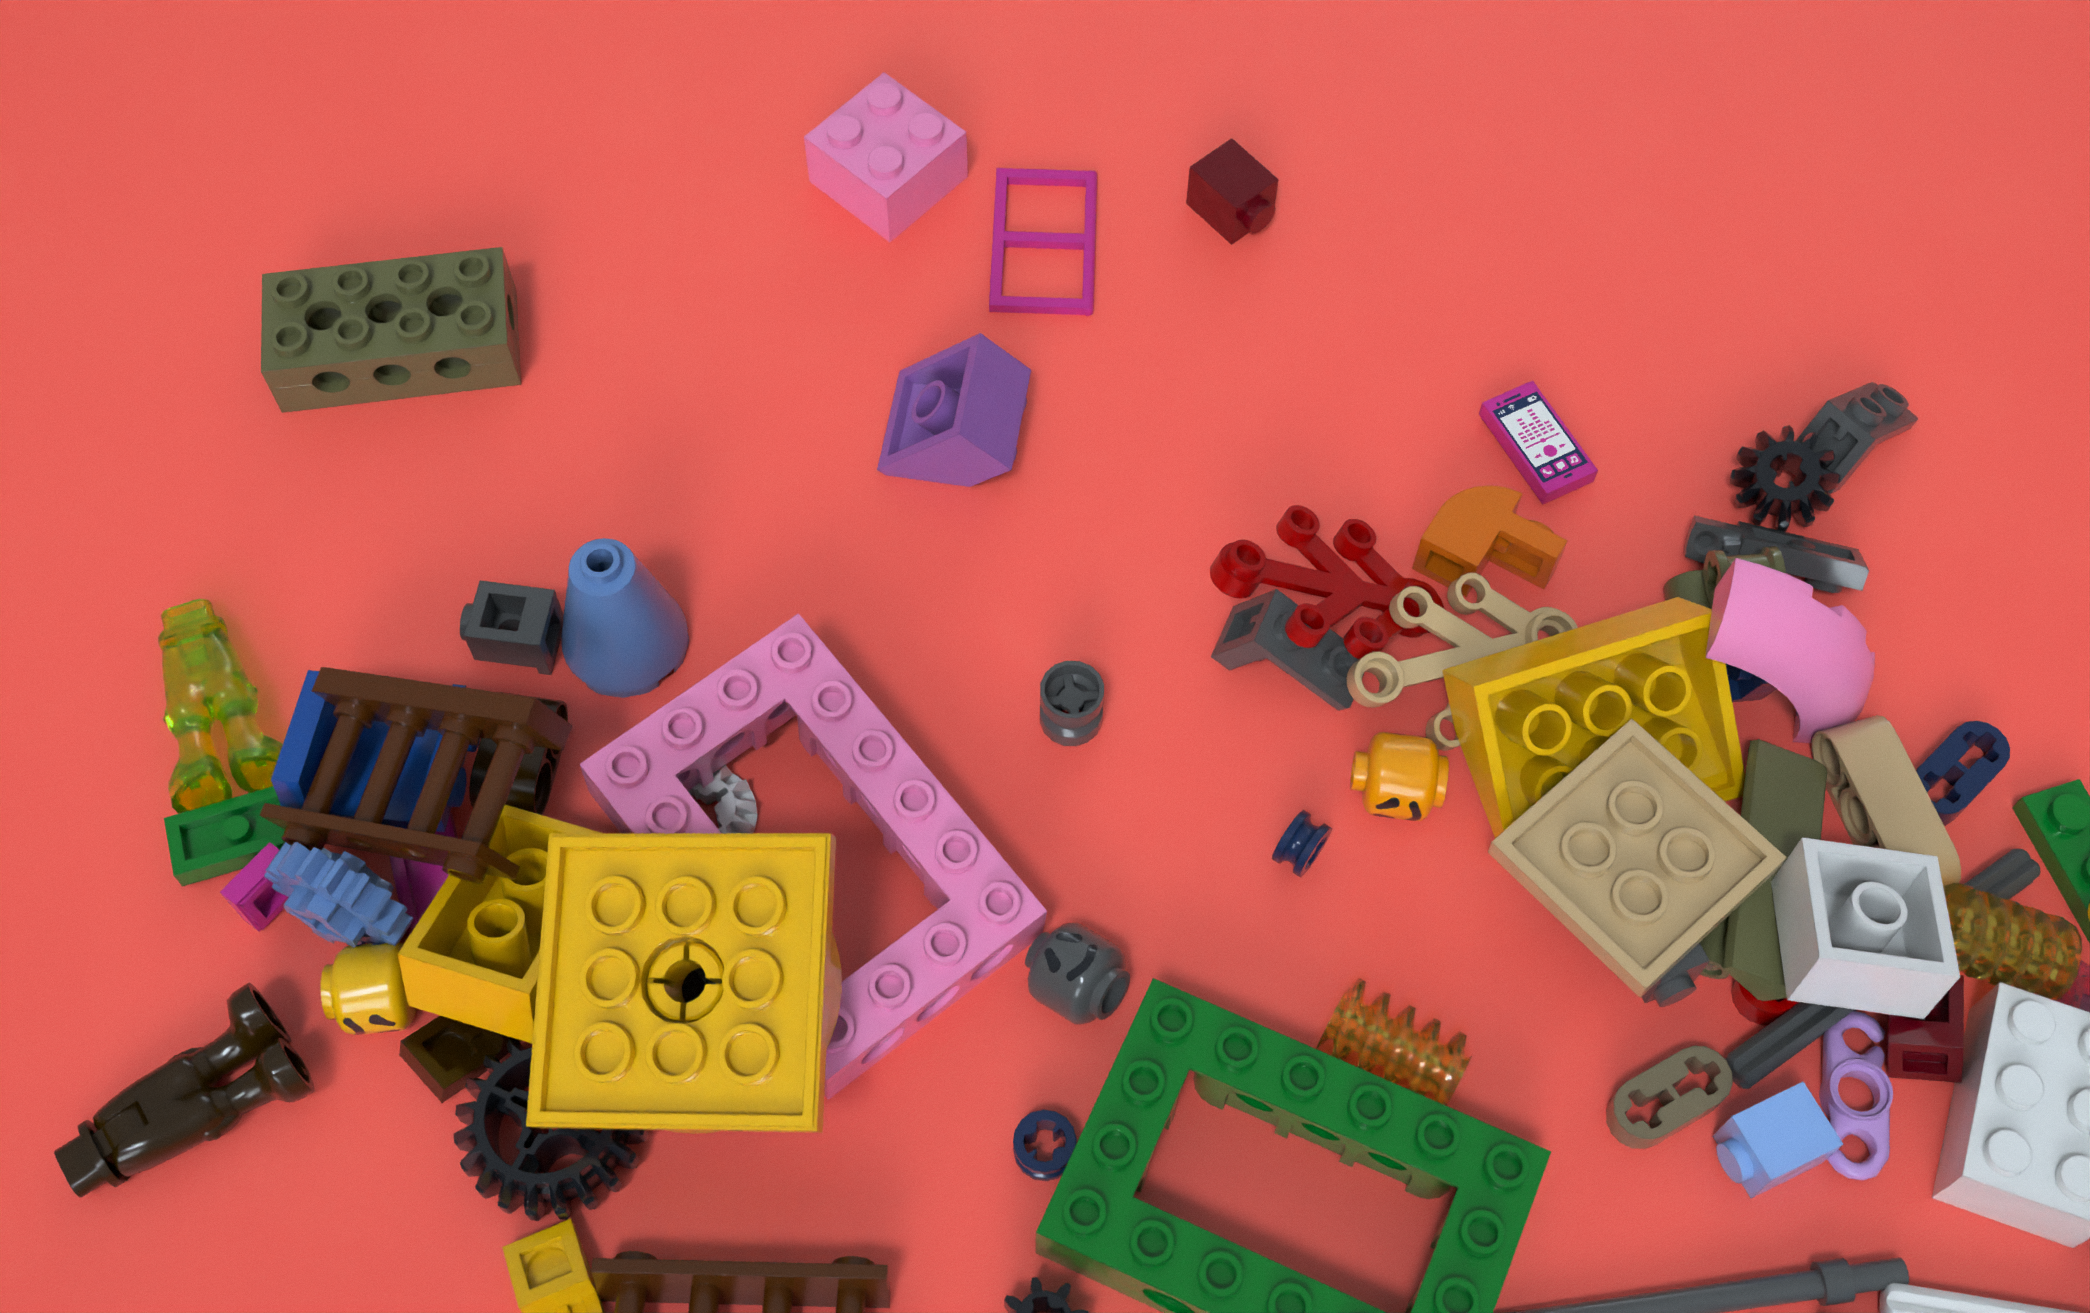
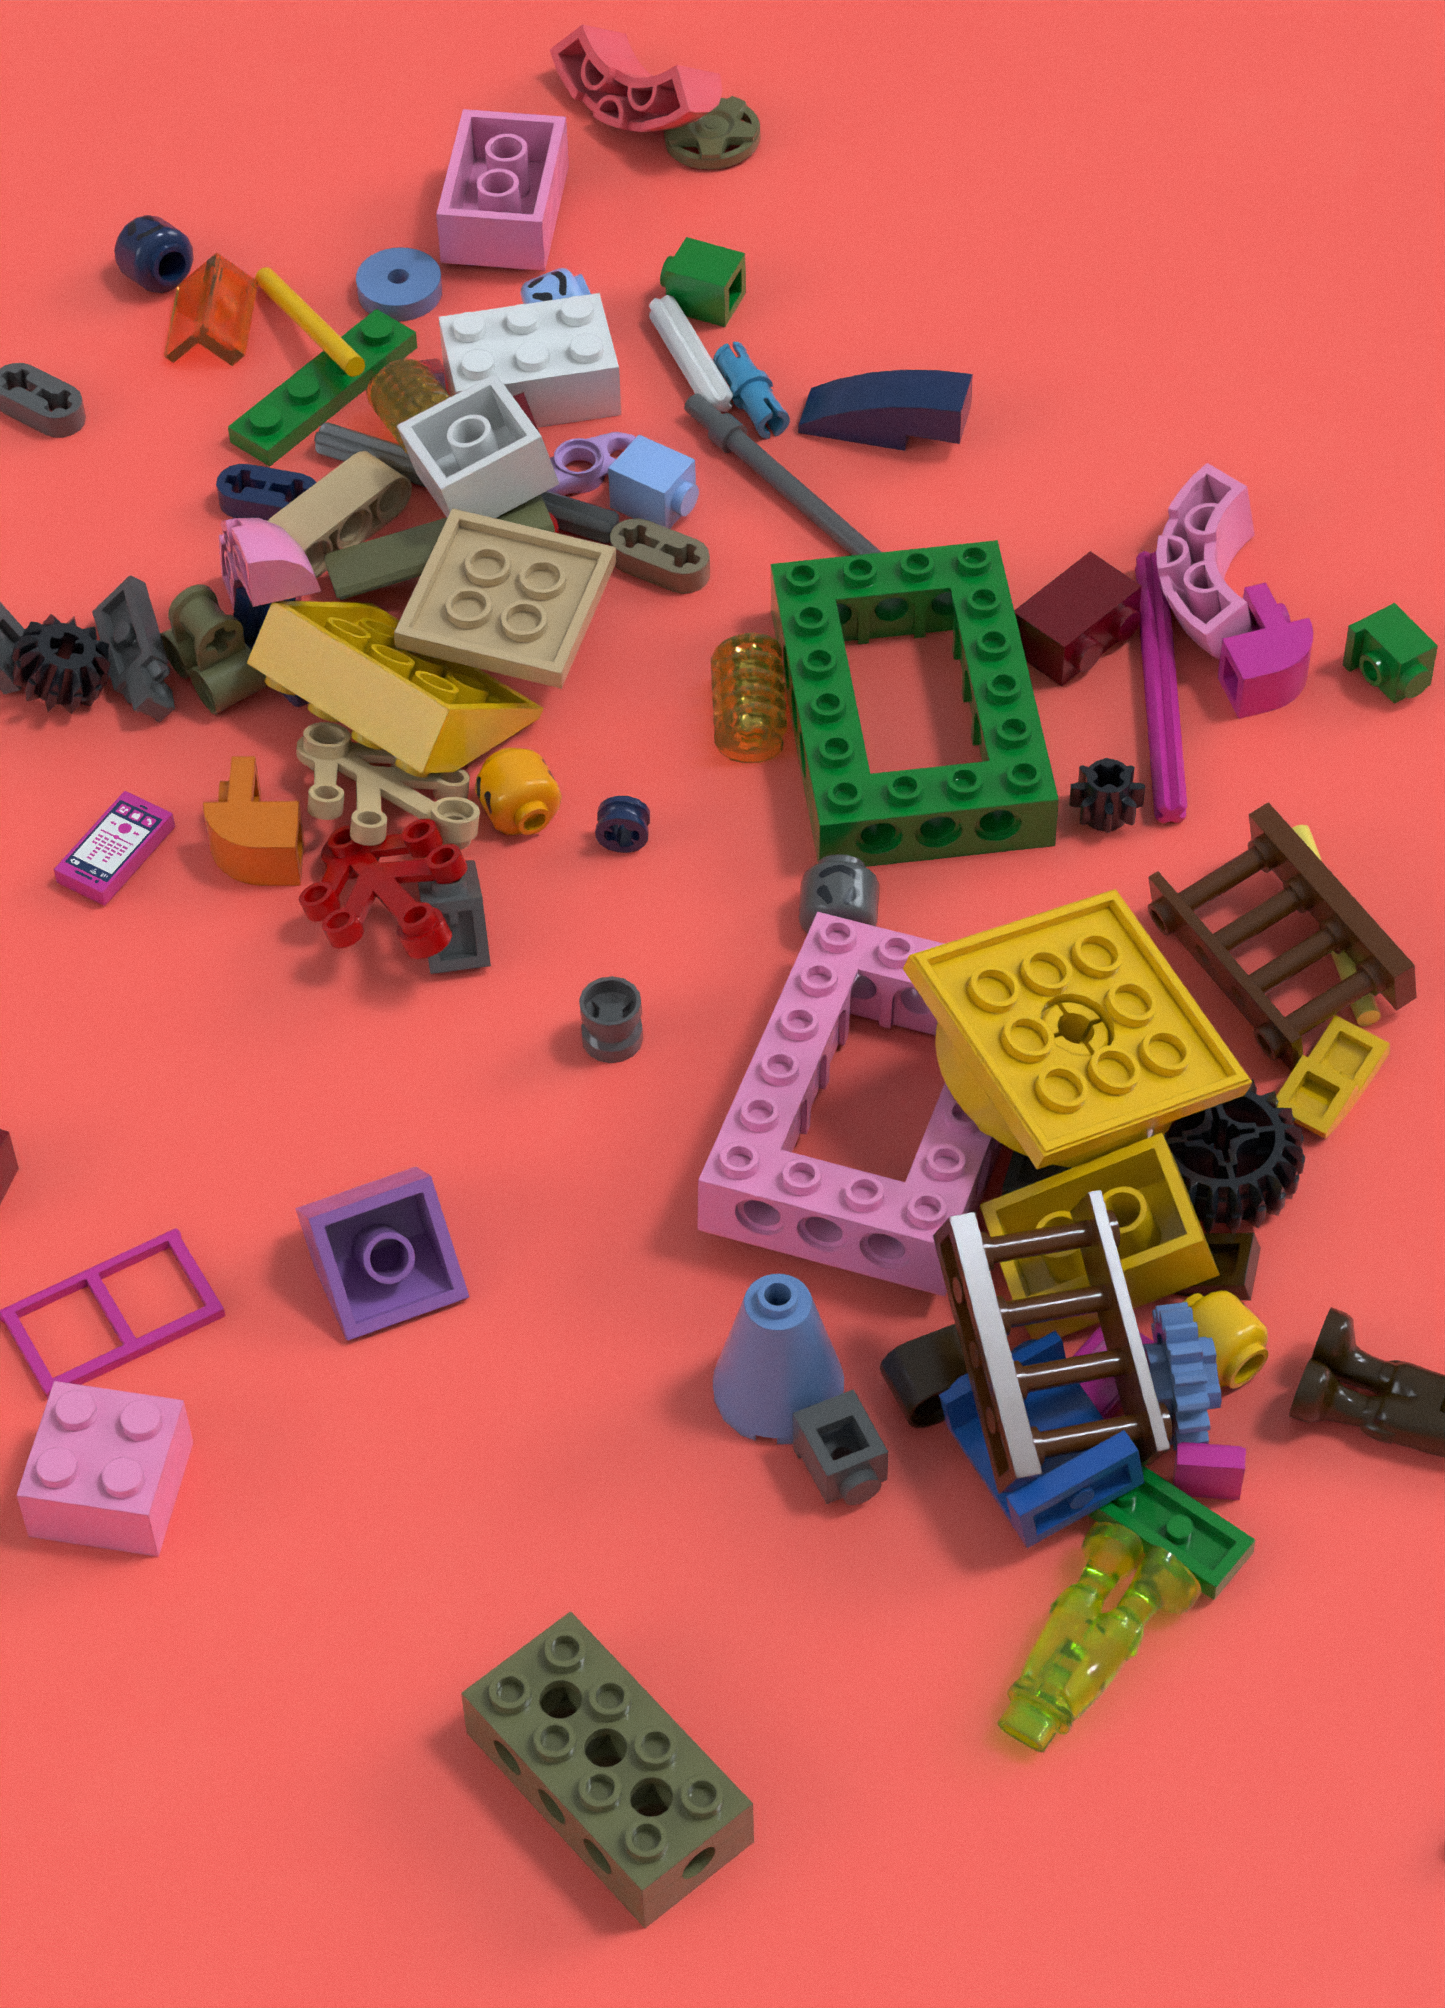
camera: 120 degrees left, 10 degrees down
(1027, 1133) = (977, 882): dark blue bush -> none

